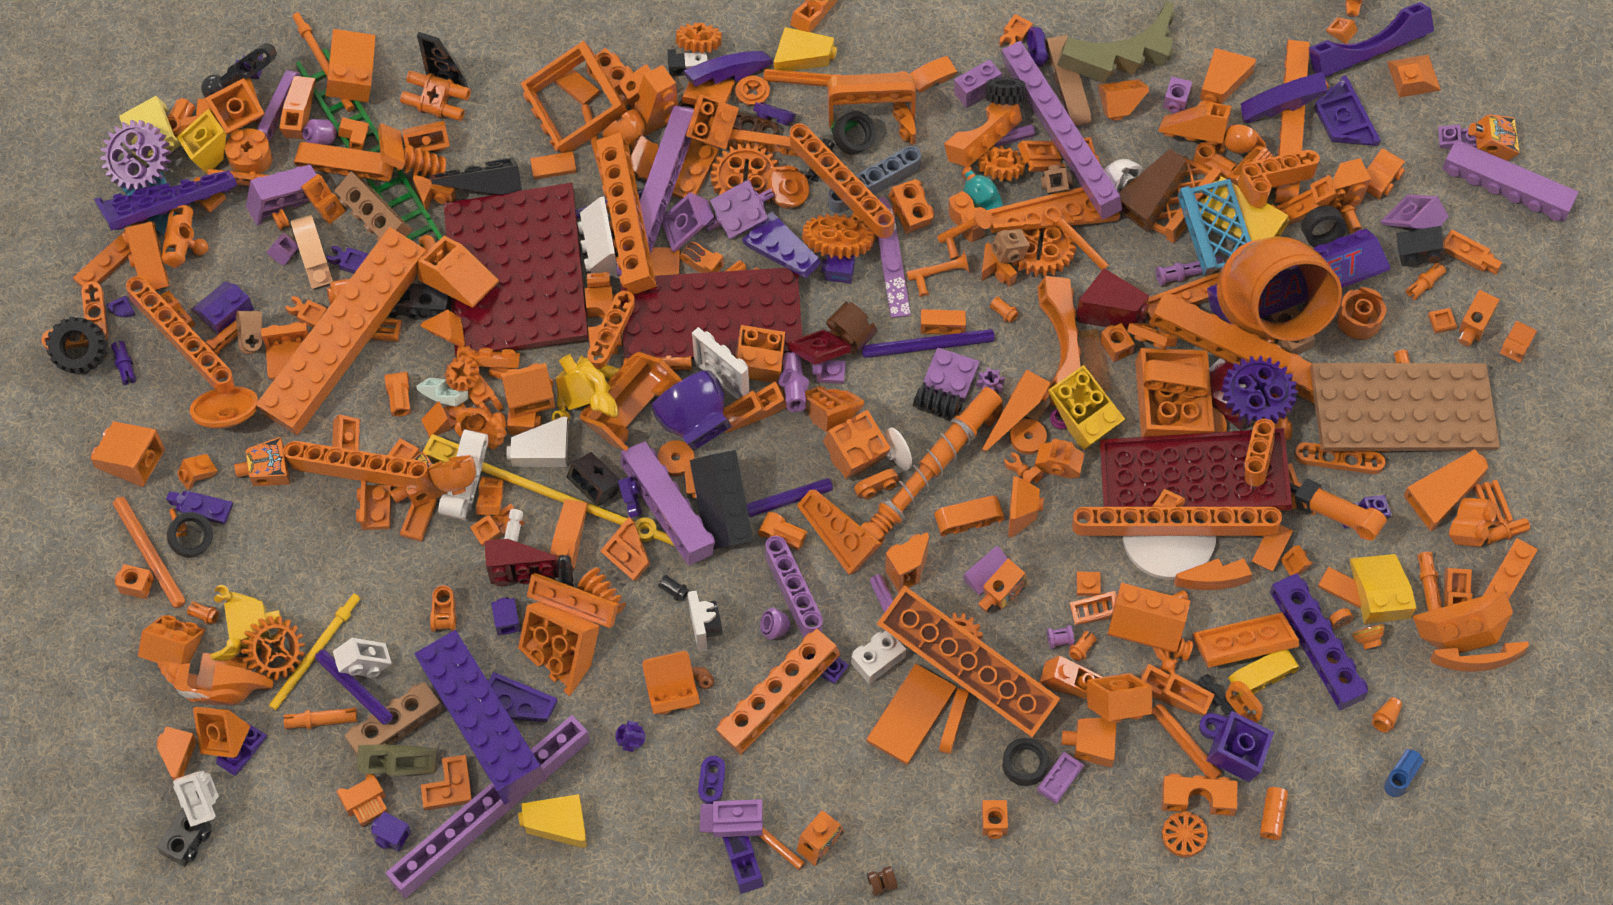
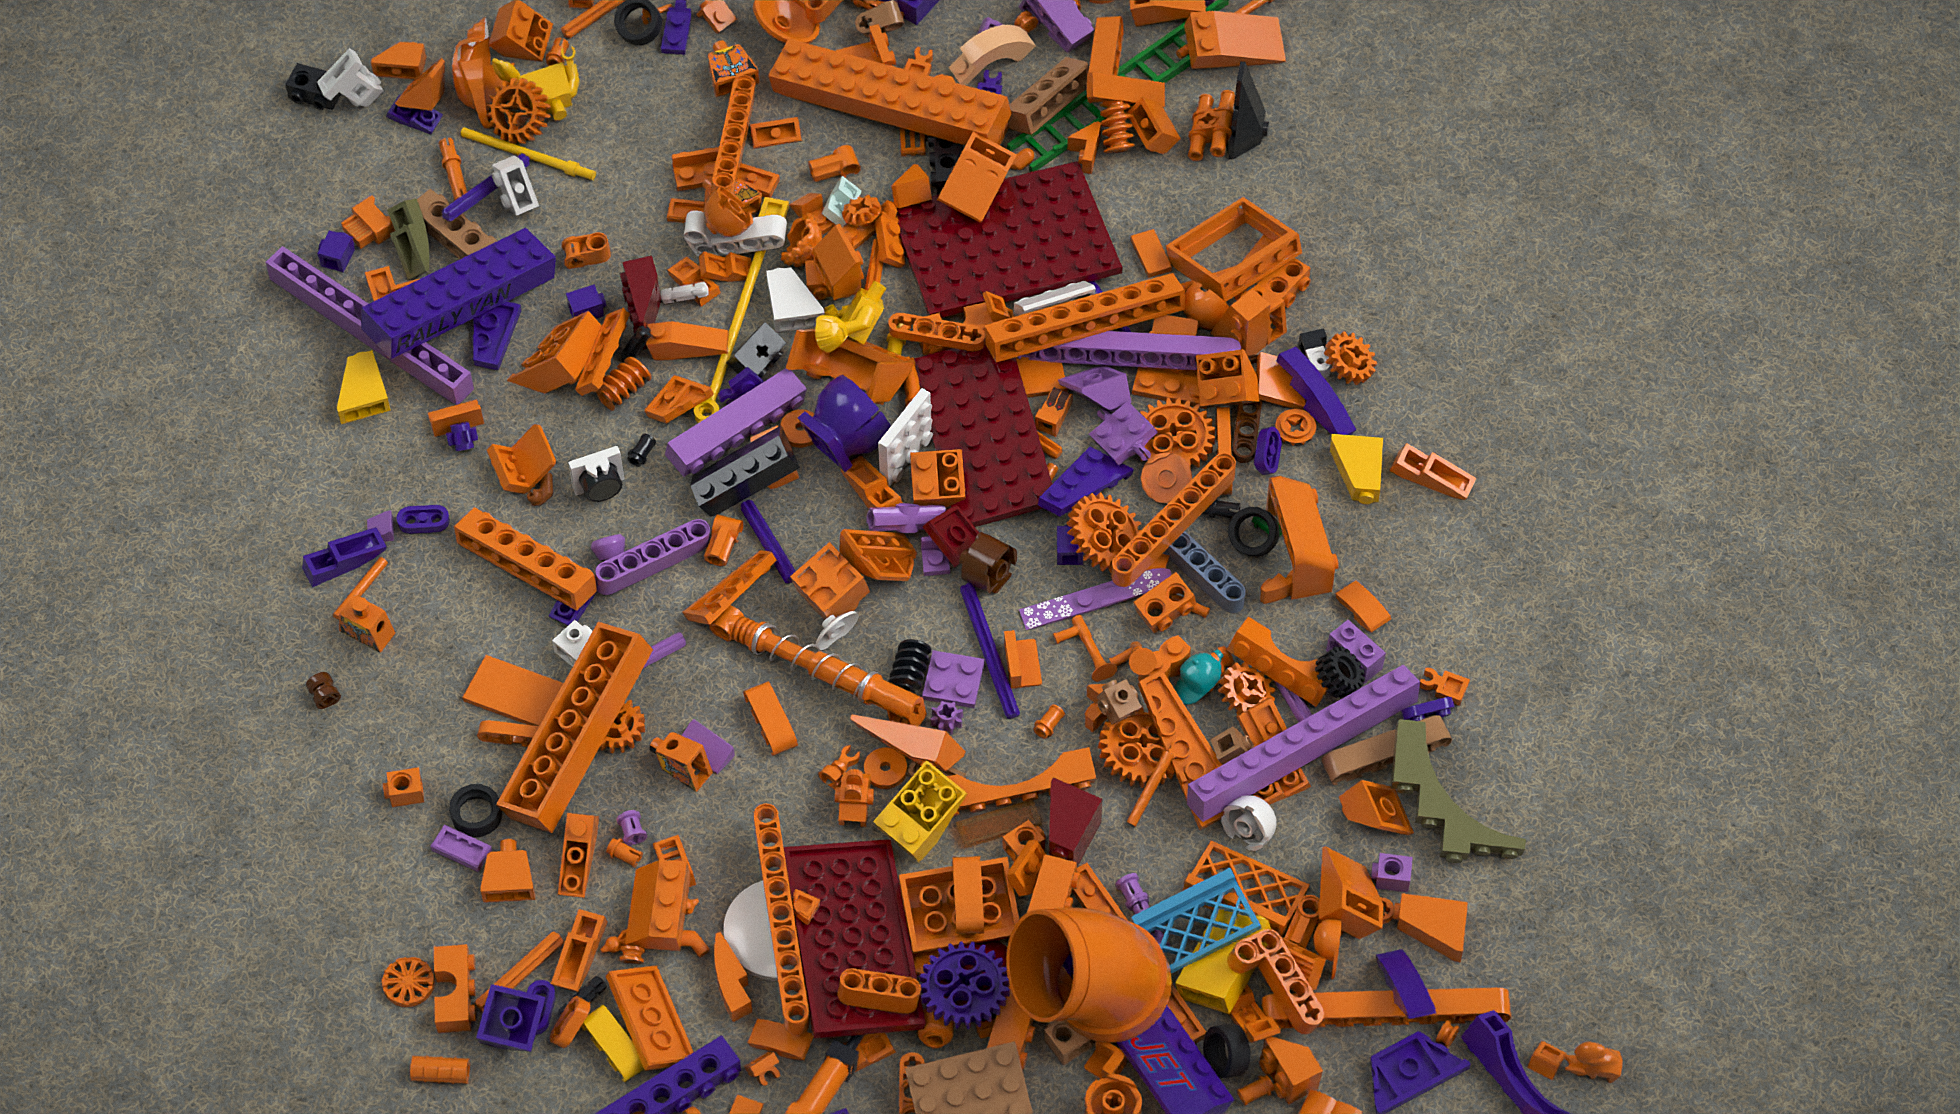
camera: 80 degrees right, 5 degrees down
(319, 132) = (1138, 31): medium lavender head -> none
(323, 199) = (1057, 48): orange slope -> none
(355, 130) = (1144, 65): orange piece -> none
(496, 177) = (1112, 192): black wedge -> none
(604, 742) = (465, 412): none -> orange panel
(737, 818) = (373, 540): medium lavender plate -> none
(796, 77) = (1325, 477): orange axle -> none
(884, 480) = (800, 626): orange plate -> none
(906, 561) = (695, 659): orange slope -> none
(1023, 505) = (783, 762): orange slope -> none
(1088, 583) = (705, 851): orange plate -> none
(1119, 697) = (552, 883): orange brick -> none
(1151, 190) = (1252, 859): reddish brown slope -> none

